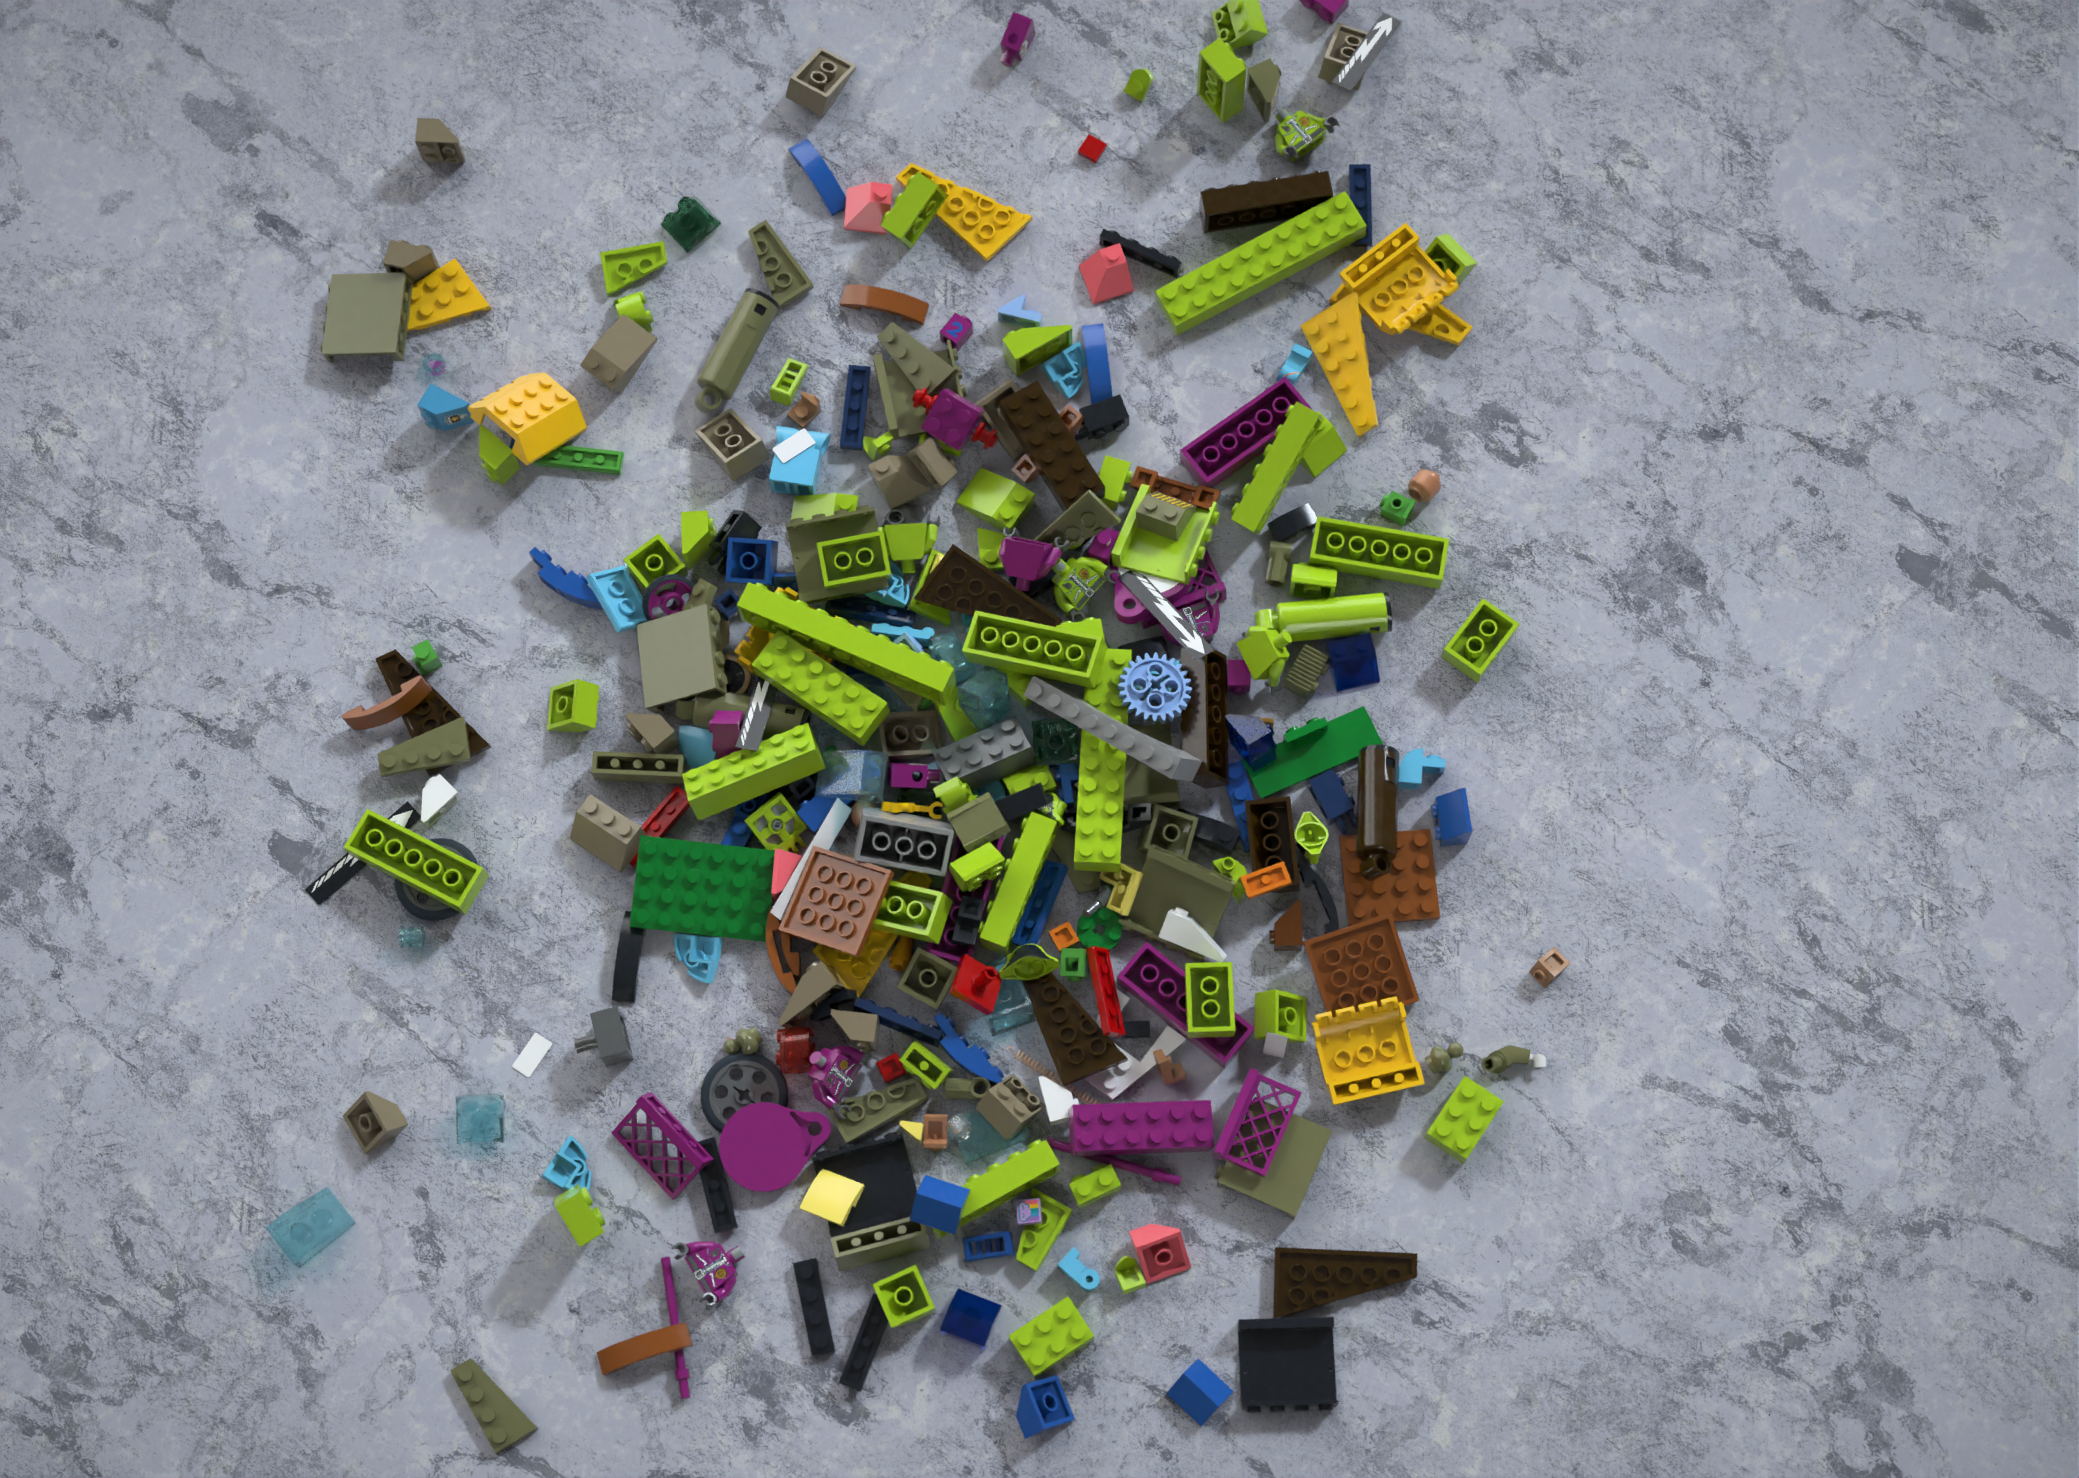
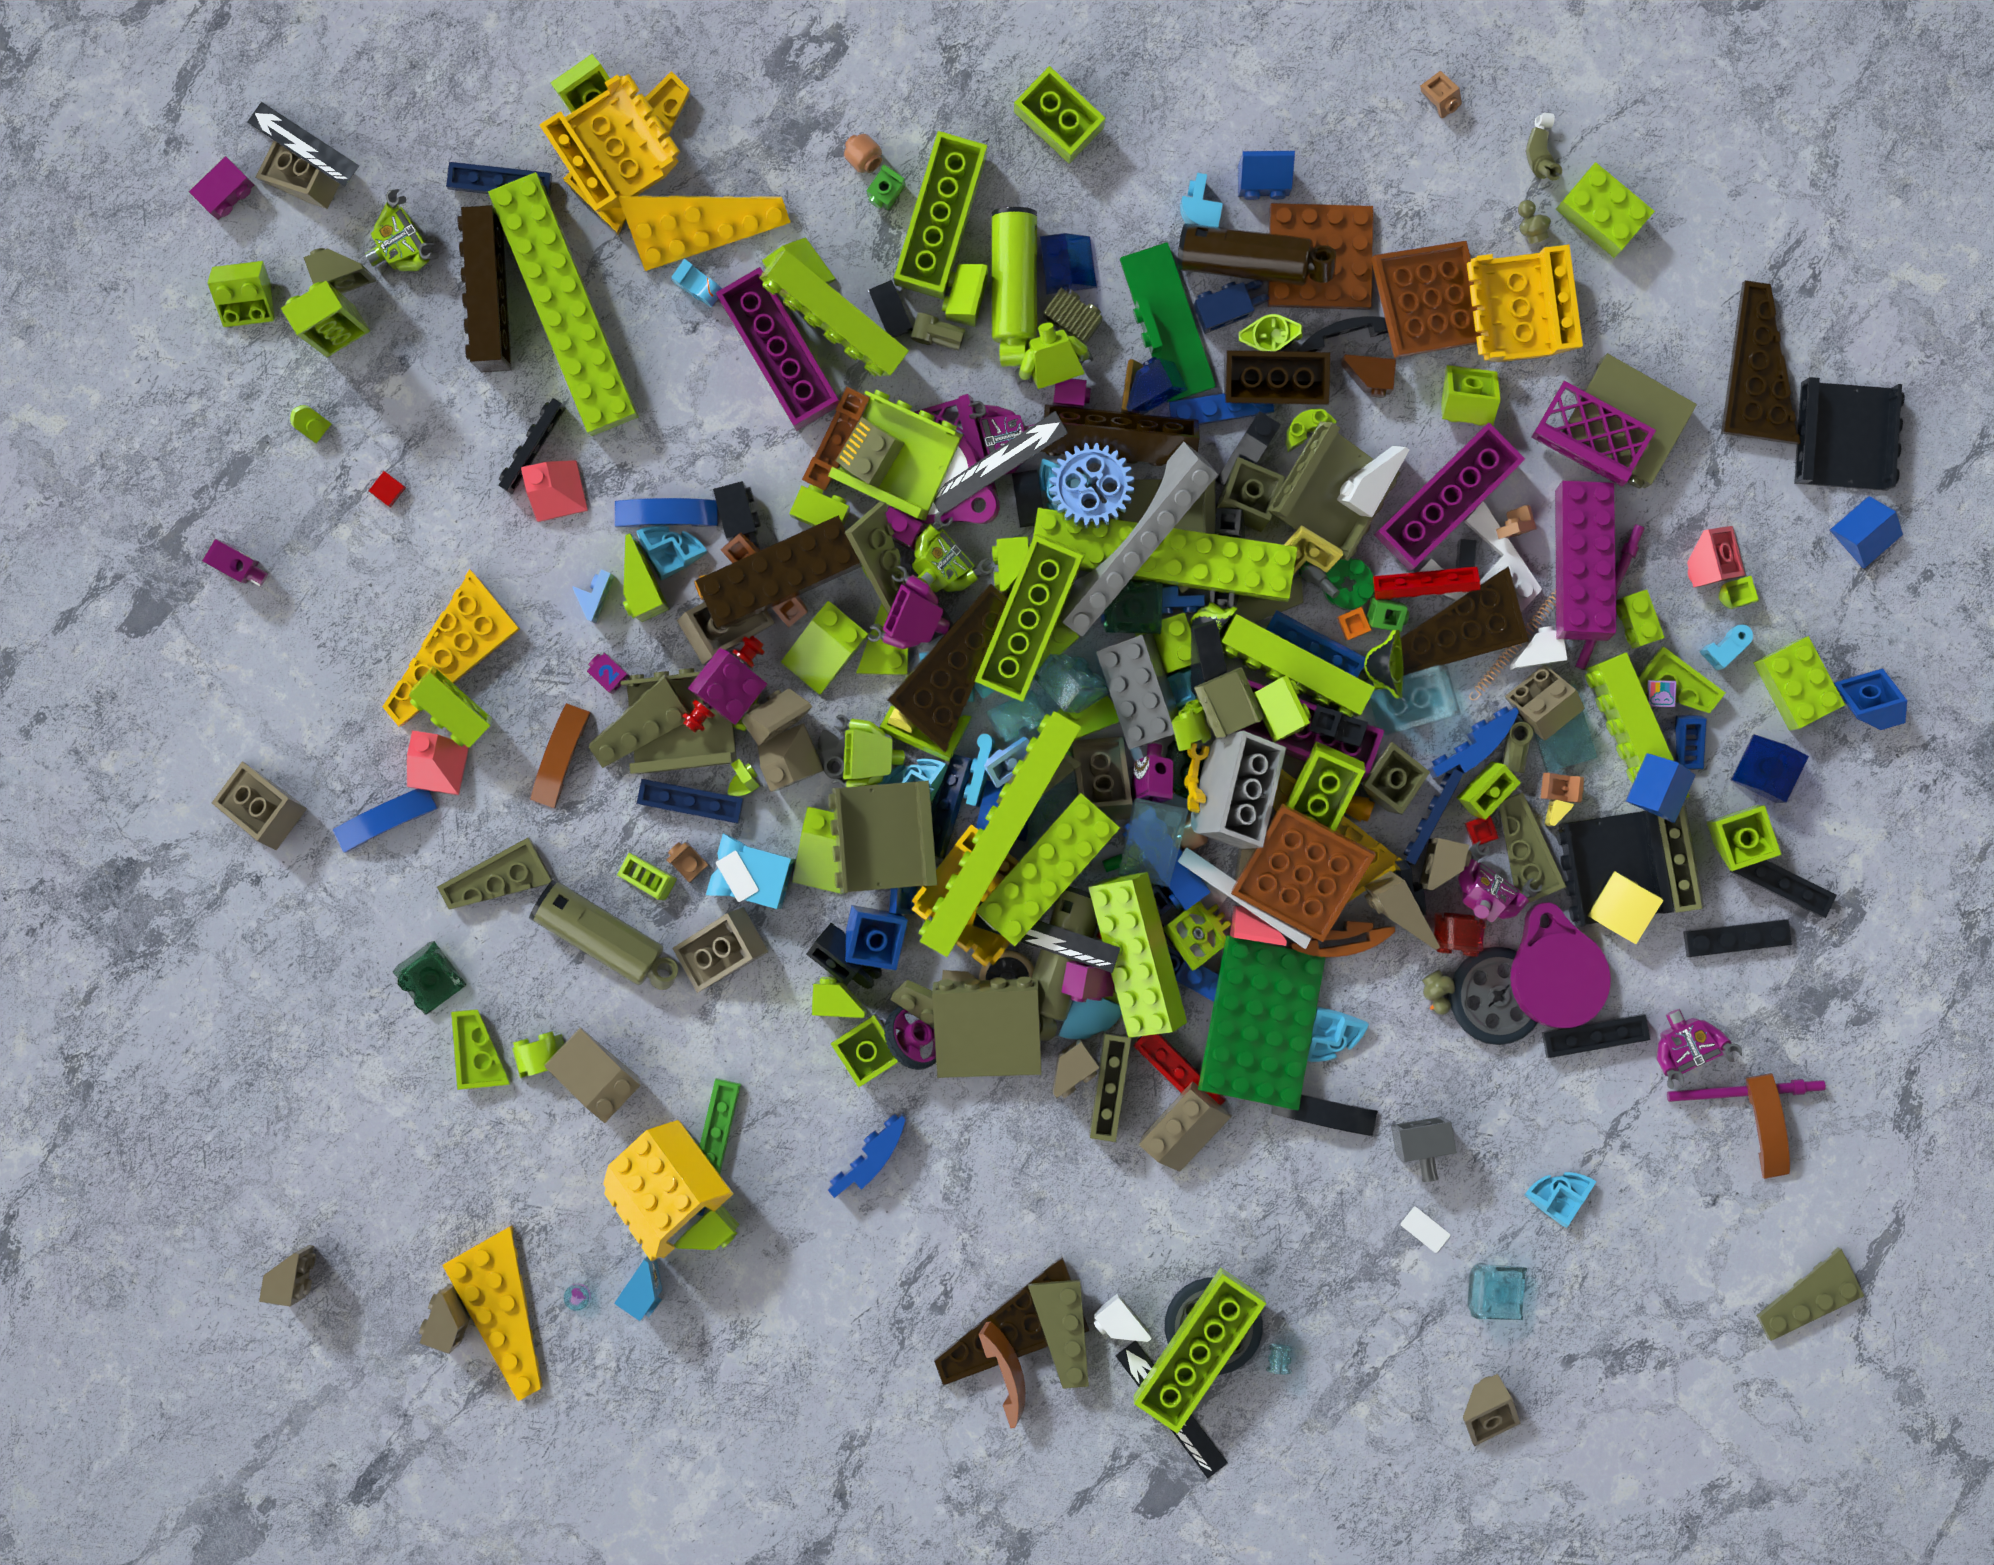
camera: 85 degrees left, 15 degrees up
(310, 1226) = (1599, 1488): clear light blue slope -> none
(367, 315) = (509, 1375): olive panel -> none
(425, 657) = (947, 1325): bright green brick -> none
(573, 706) = (1026, 1158): lime slope -> none
(578, 1214) = (1629, 1187): lime brick -> none
(618, 597) = (900, 1095): medium azure tile -> none
(671, 1129) = (1539, 1078): magenta fence -> none
(727, 605) = (928, 967): dark blue leg -> none
(854, 559) = (895, 816): lime brick -> none
(959, 1127) = (1561, 760): clear piece -> none
(976, 984) = (1412, 724): red tile -> none
(1209, 1000) = (1461, 465): lime brick -> none
(1266, 880) = (1325, 388): orange plate -> none
(1275, 1045) = (1504, 403): white sticker -> none

